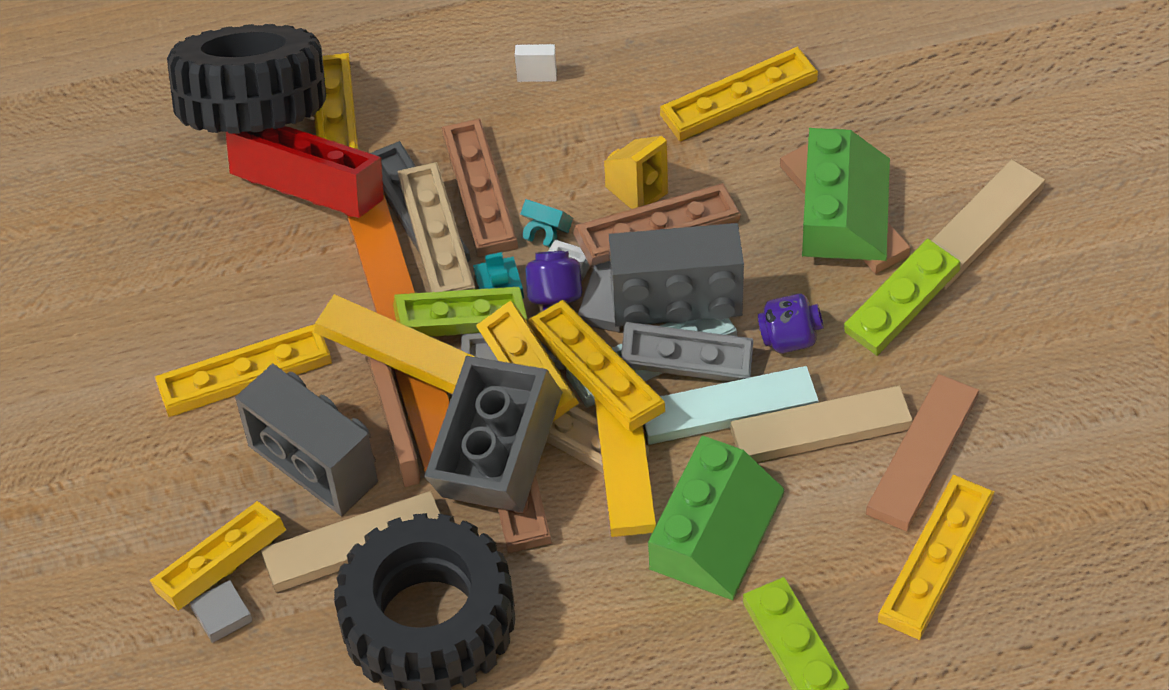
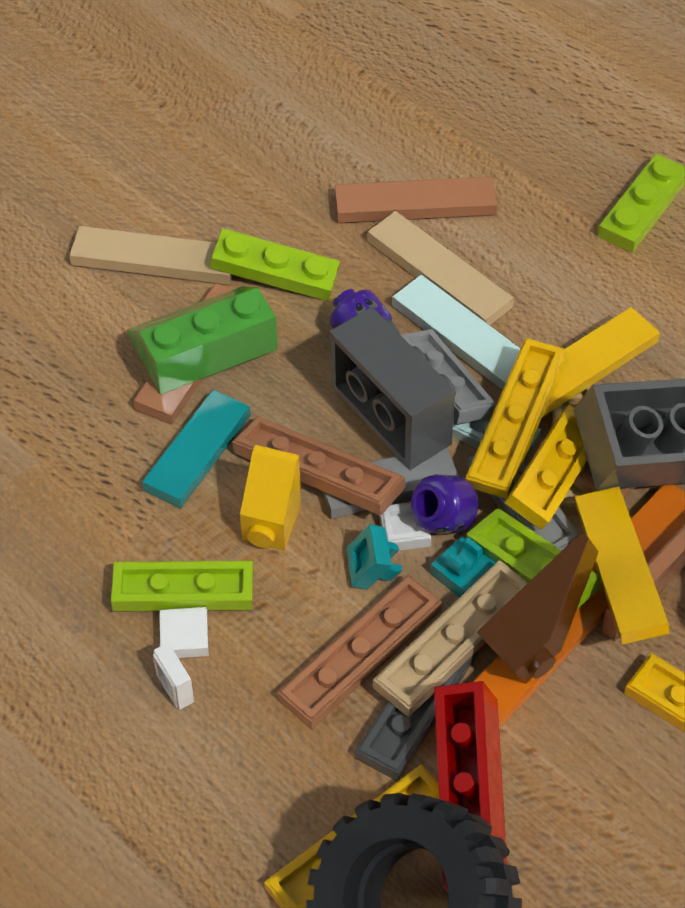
camera: 125 degrees left, 0 degrees up
(392, 262) = (537, 619): none -> reddish brown slope
(573, 91) = (185, 631): none -> white tile
(610, 101) = (182, 585): none -> lime plate
(714, 519) = (587, 291): bright green slope -> none
(738, 93) = (102, 494): yellow tile -> none
(740, 168) = (196, 449): none -> teal tile
(935, 557) = (502, 157): yellow tile -> none

